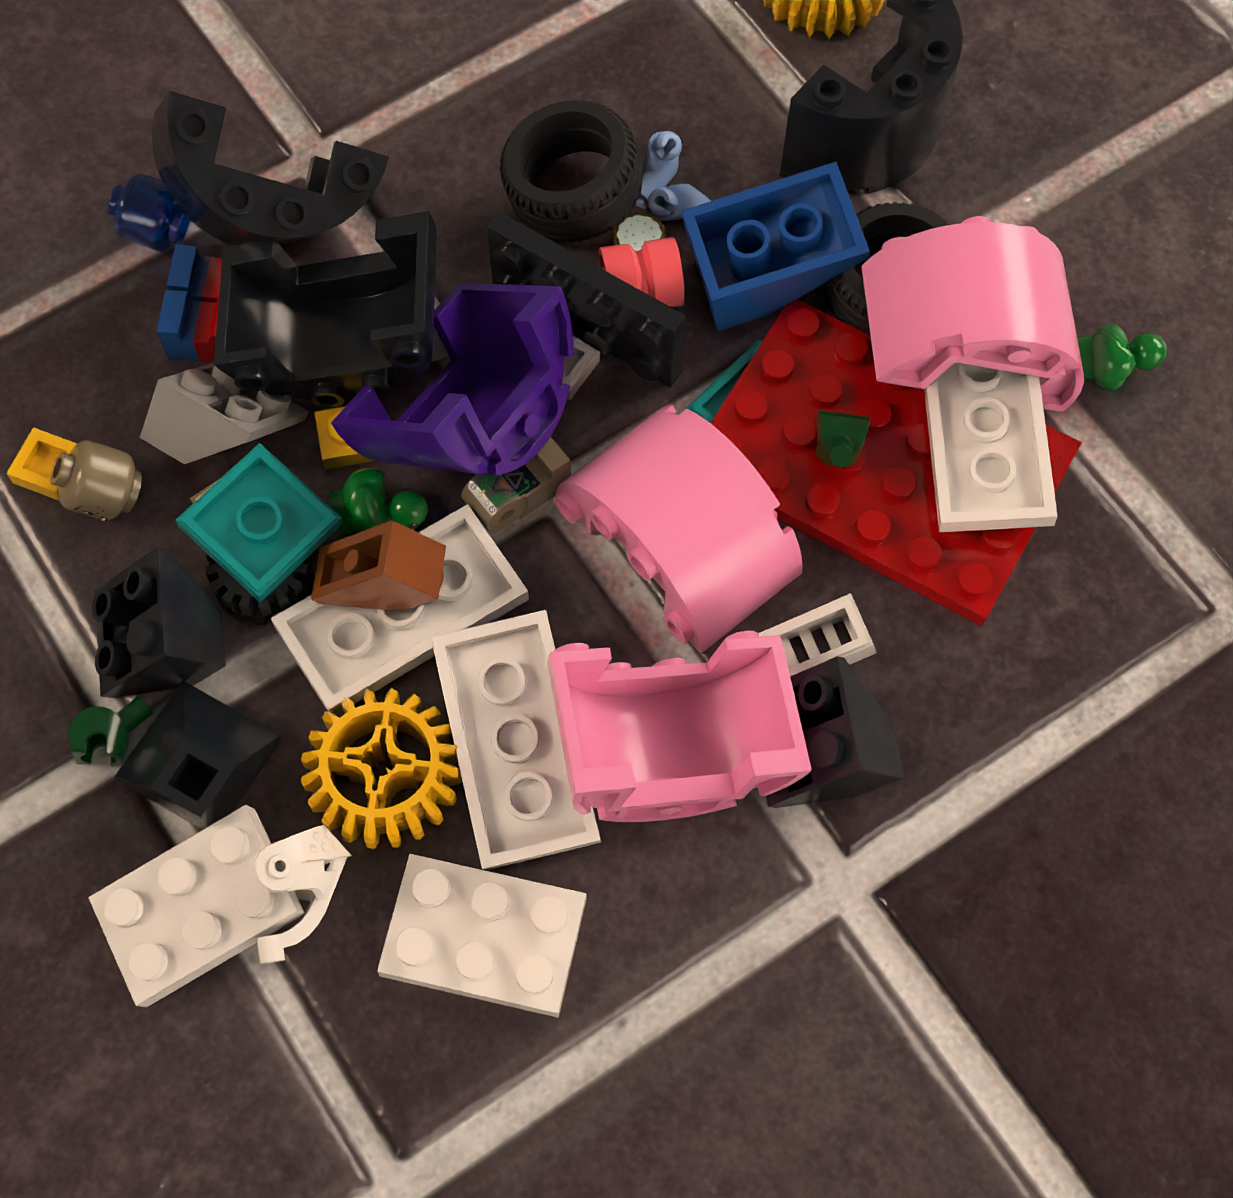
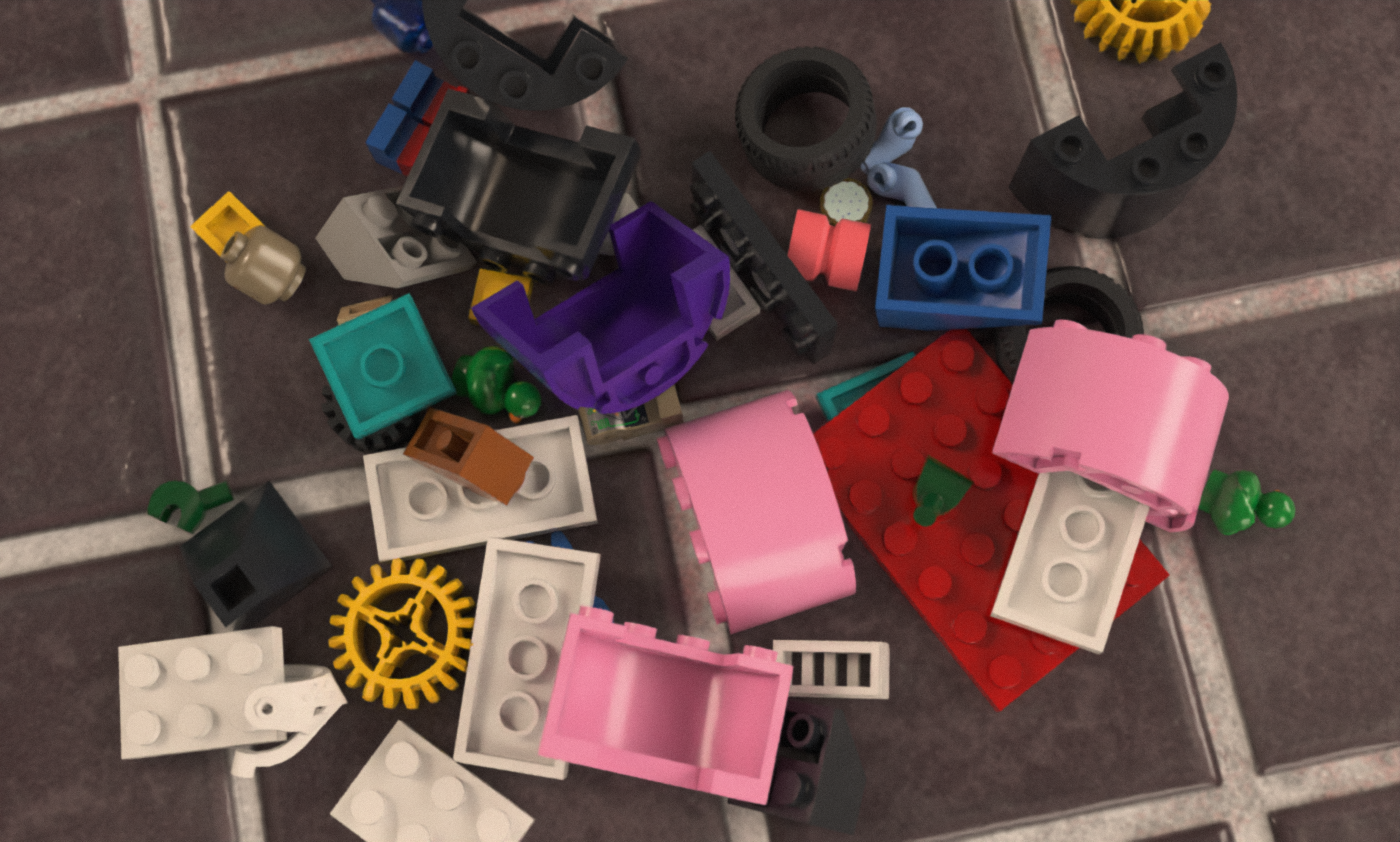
camera: 25 degrees right, 10 degrees up
(155, 629) = (261, 425): black slope -> none

